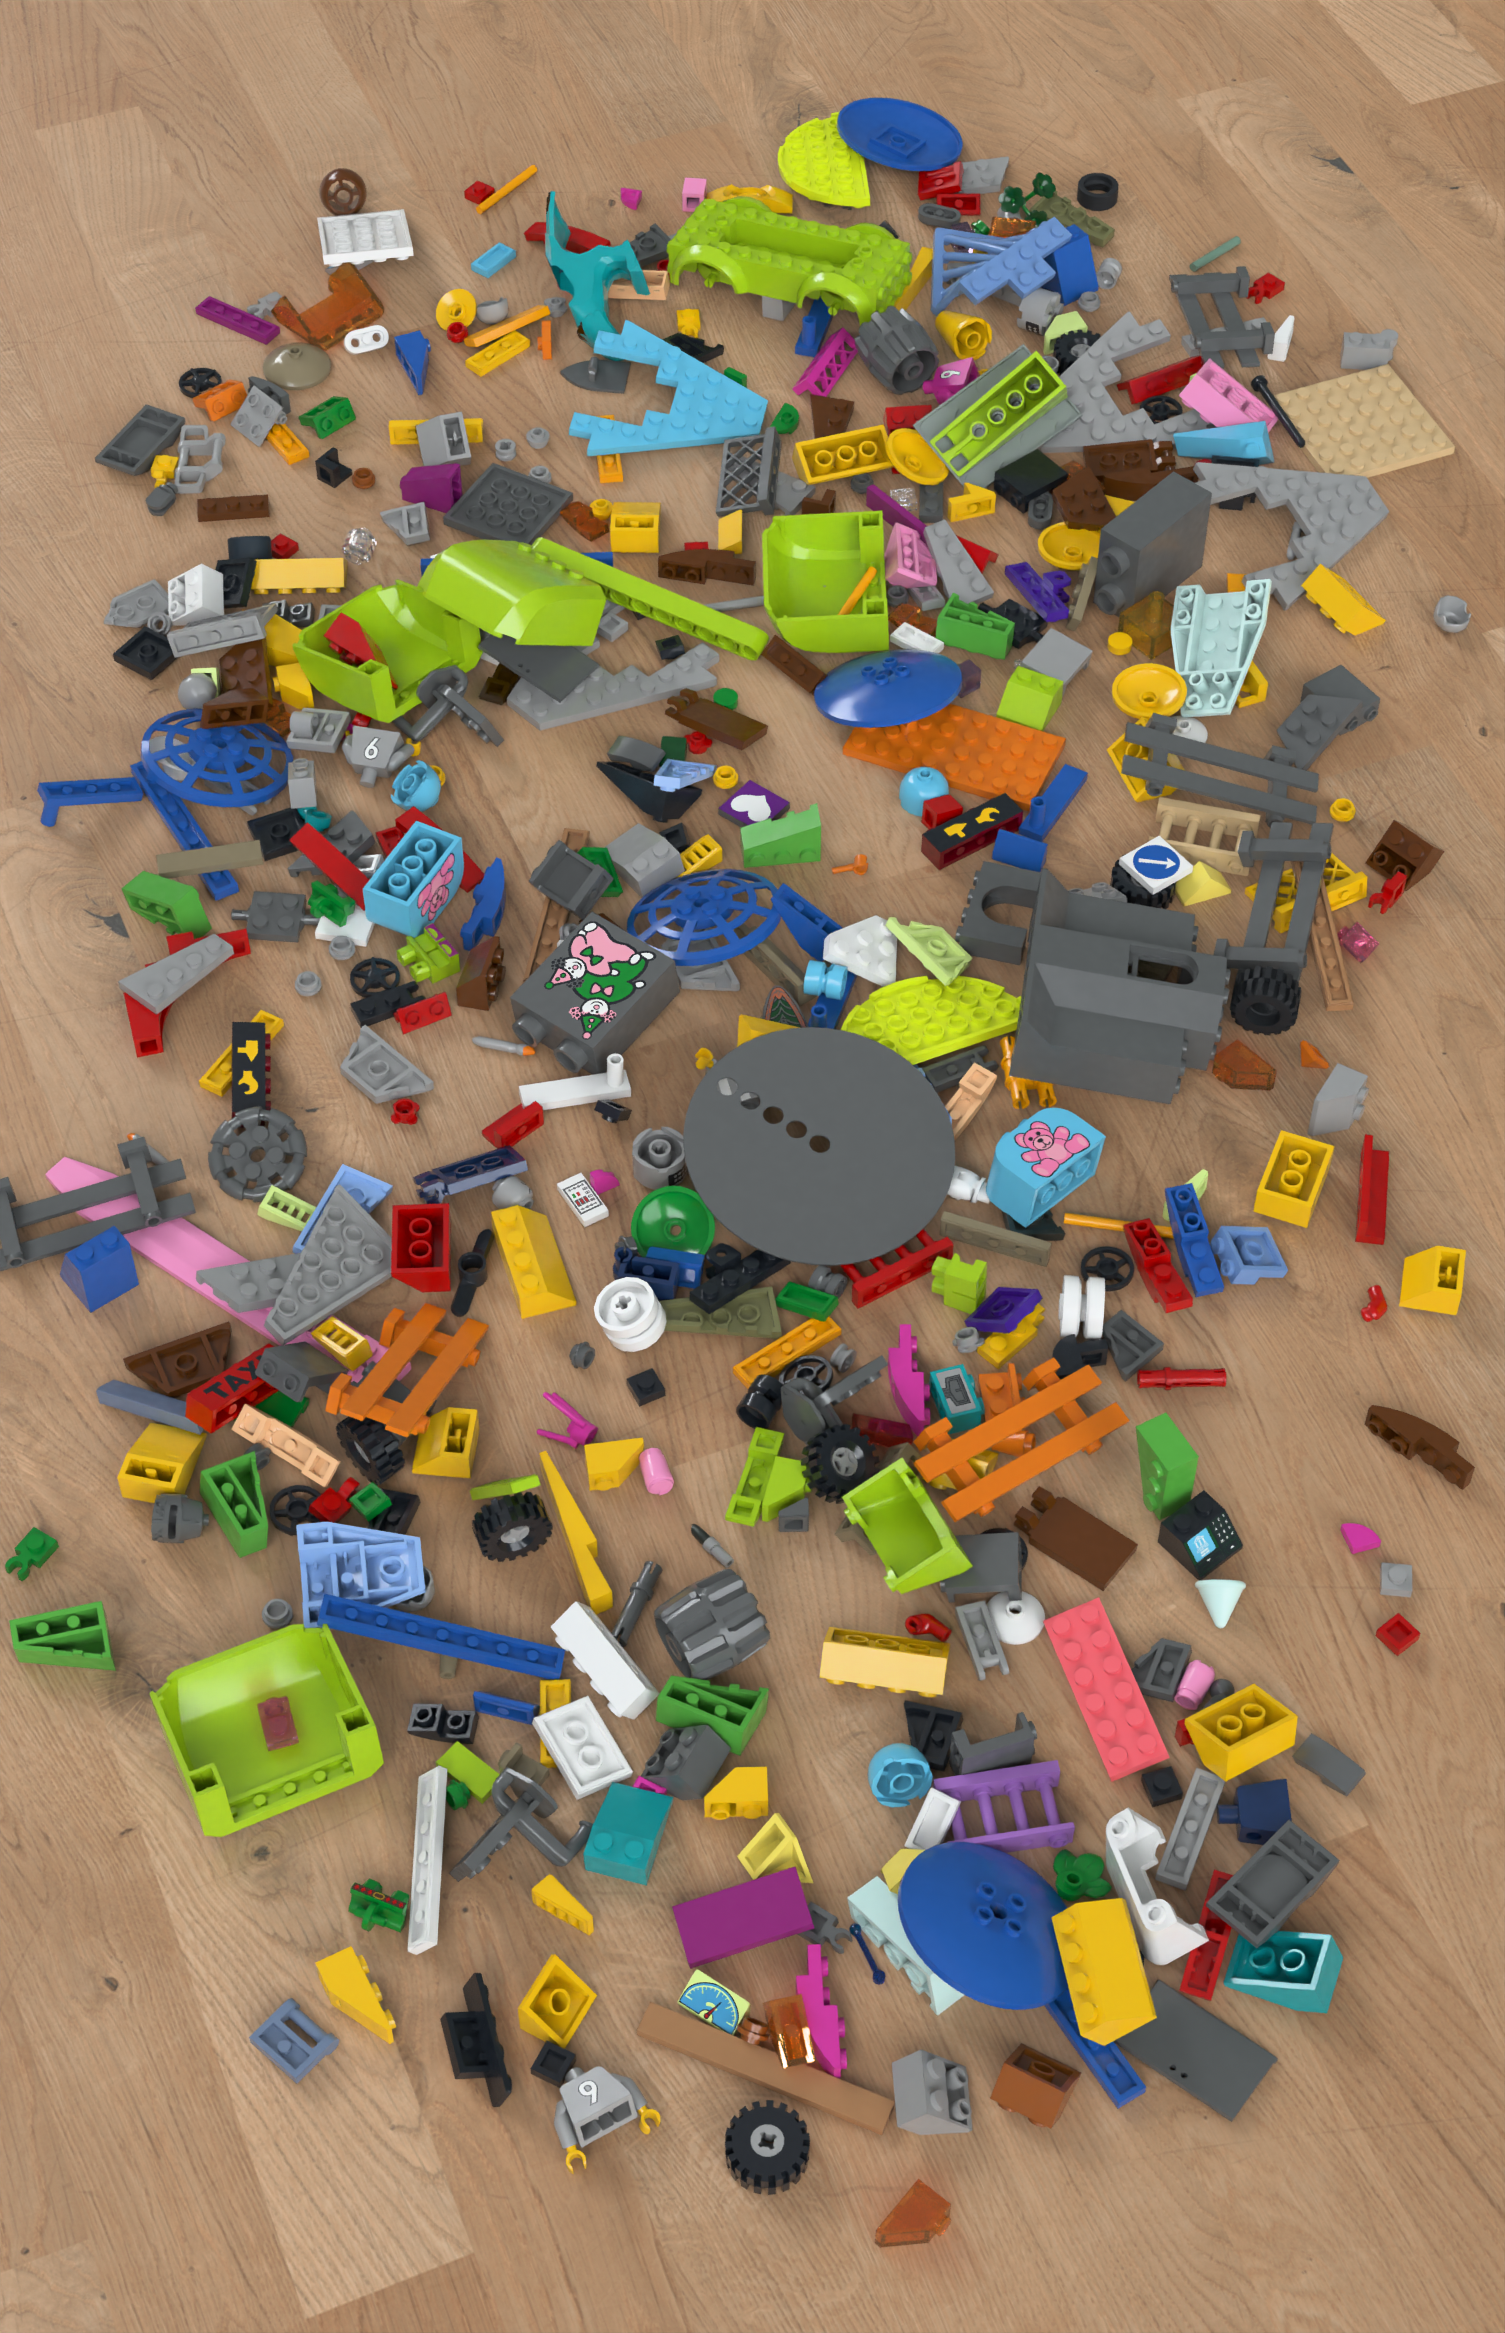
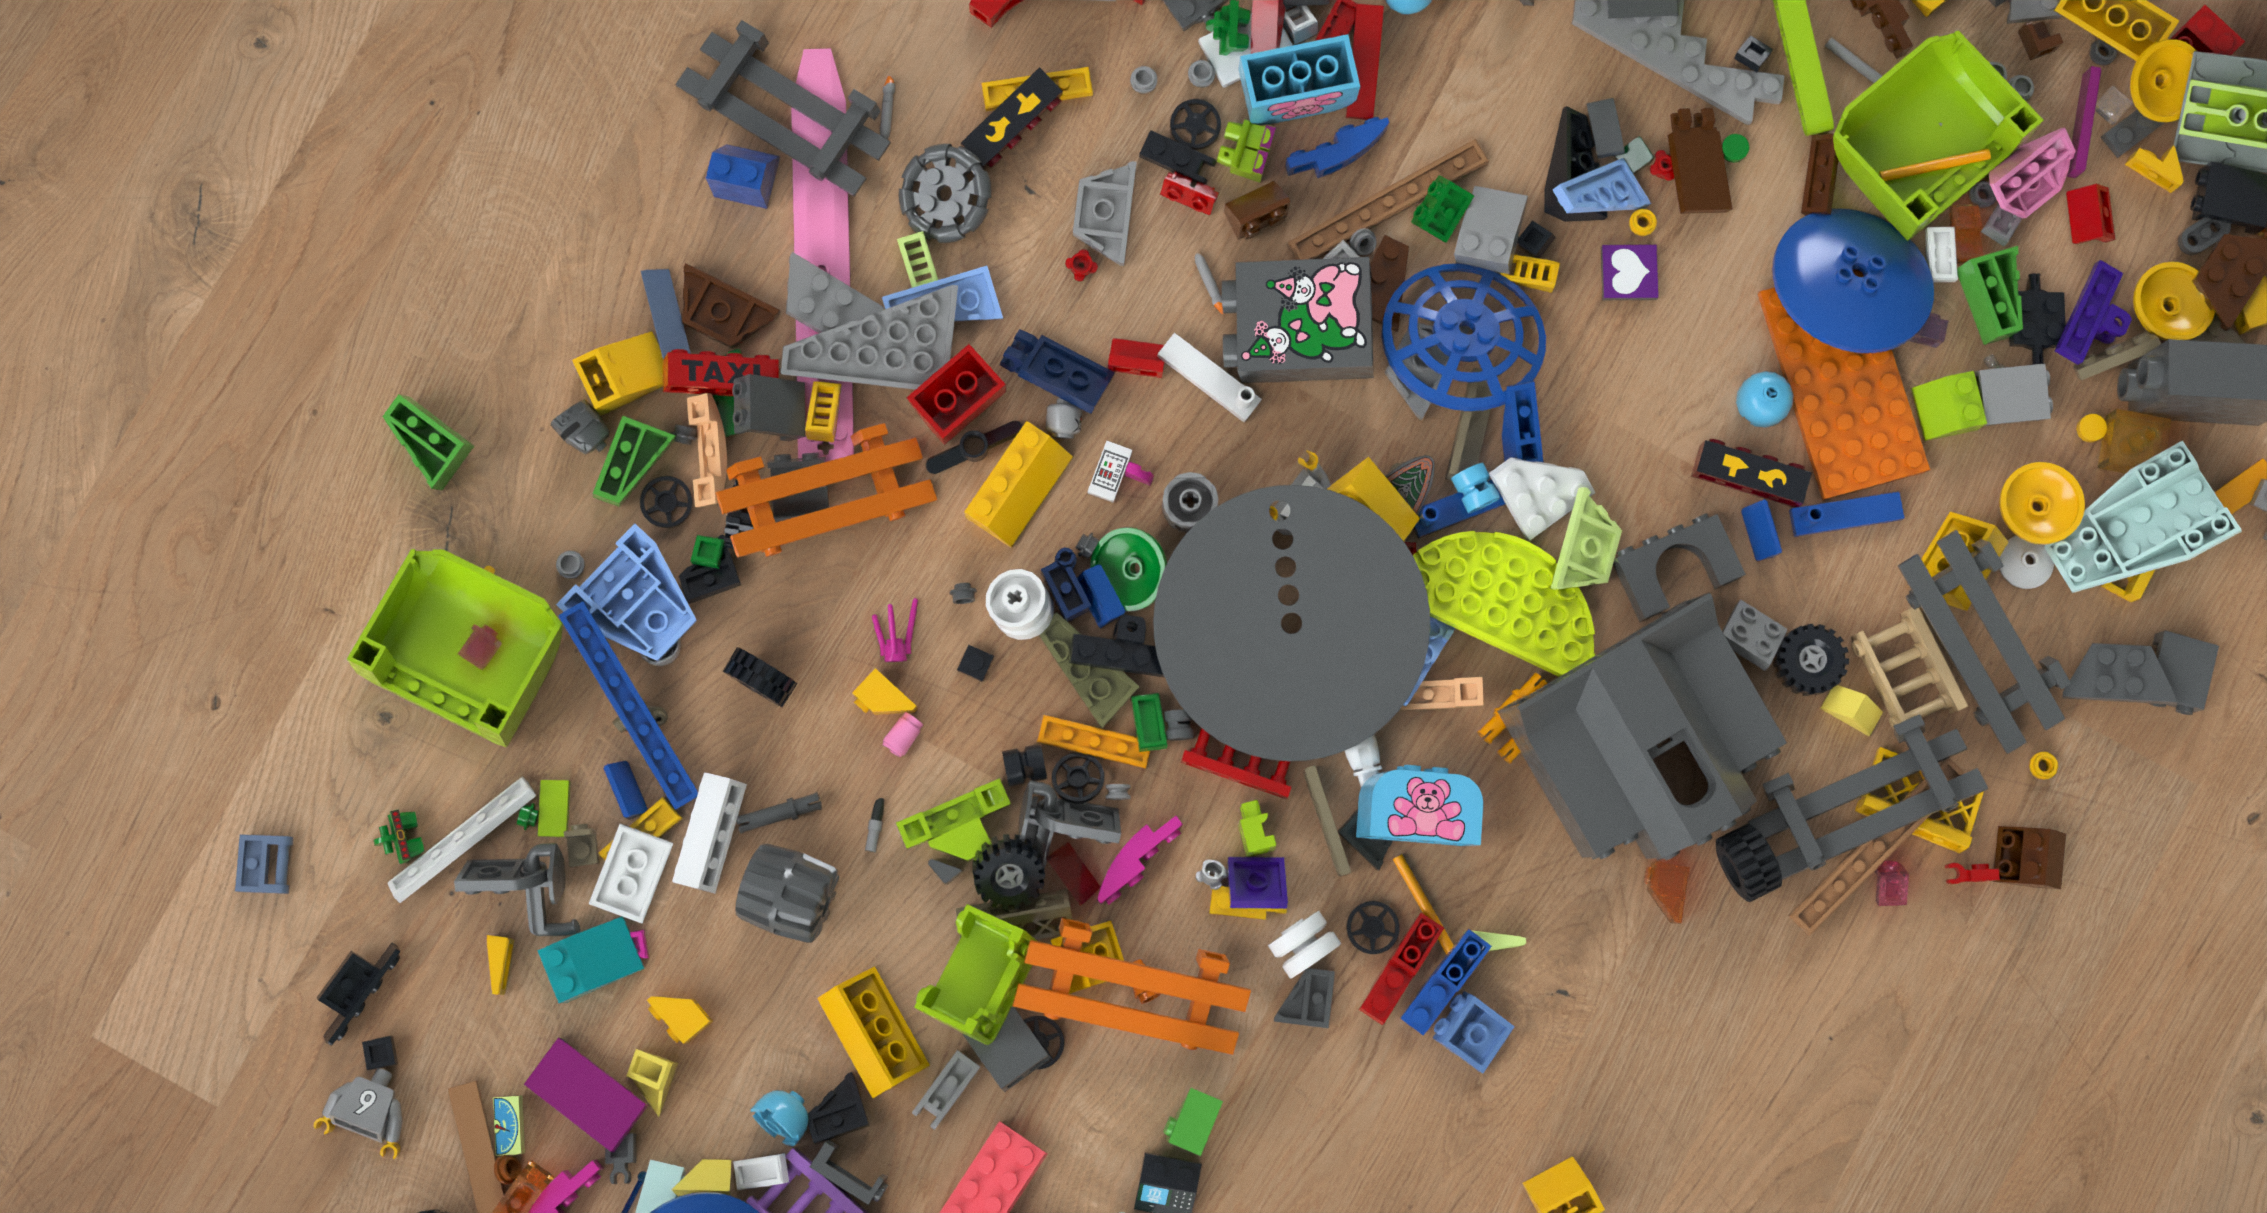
camera: 45 degrees right, 30 degrees up
(32, 1550) = (486, 347): green plate -> none
(334, 1505) = (685, 525): red plate -> none
(350, 1991) = (325, 872): yellow slope -> none
(443, 1725) = (576, 757): black slope -> none
(448, 1444) = (802, 566): yellow slope -> none
(504, 1487) = (778, 649): lime tile -> none
(555, 2003) = (422, 1020): yellow slope -> none
(570, 880) = (1410, 199): dark grey panel -> none
(578, 1538) = (799, 725): yellow slope -> none
(612, 1111) = (1211, 424): black plate -> none
(686, 1761) = (675, 956): dark grey slope -> none
(726, 1710) = (727, 946): bright green wedge -> none
(783, 840) = (1603, 329): bright green wedge -> none
(858, 867) = (1636, 410): orange hand -> none
(927, 1624) = (930, 1036): red arm -> none
(940, 810) = (1749, 433): red panel -> none
(951, 1070) = (1478, 660): dark grey hinge -> none
(955, 565) = (2055, 227): light grey wing -> none
(955, 1398) = (1147, 907): brick -> none
(1000, 1391) = (1178, 939): orange bracket -> none
(1018, 1627) = (984, 1109): white dish -> none
(1075, 1538) = (1094, 1093): reddish brown tile -> none
(1076, 1355) = (1250, 965): black brick -> none
(1156, 865) = (1829, 662): tile -> none
(1173, 1378) = (1300, 1054): red pin -> none
(1293, 1179) = (1578, 1015): yellow brick -> none
(1311, 1056) = (1732, 936): orange slope -> none
(1339, 1101) = (1690, 998): light grey slope -> none
(1372, 1194) = (1621, 1084): red fence -> none
(1376, 1307) = (1507, 1167): red arm -> none

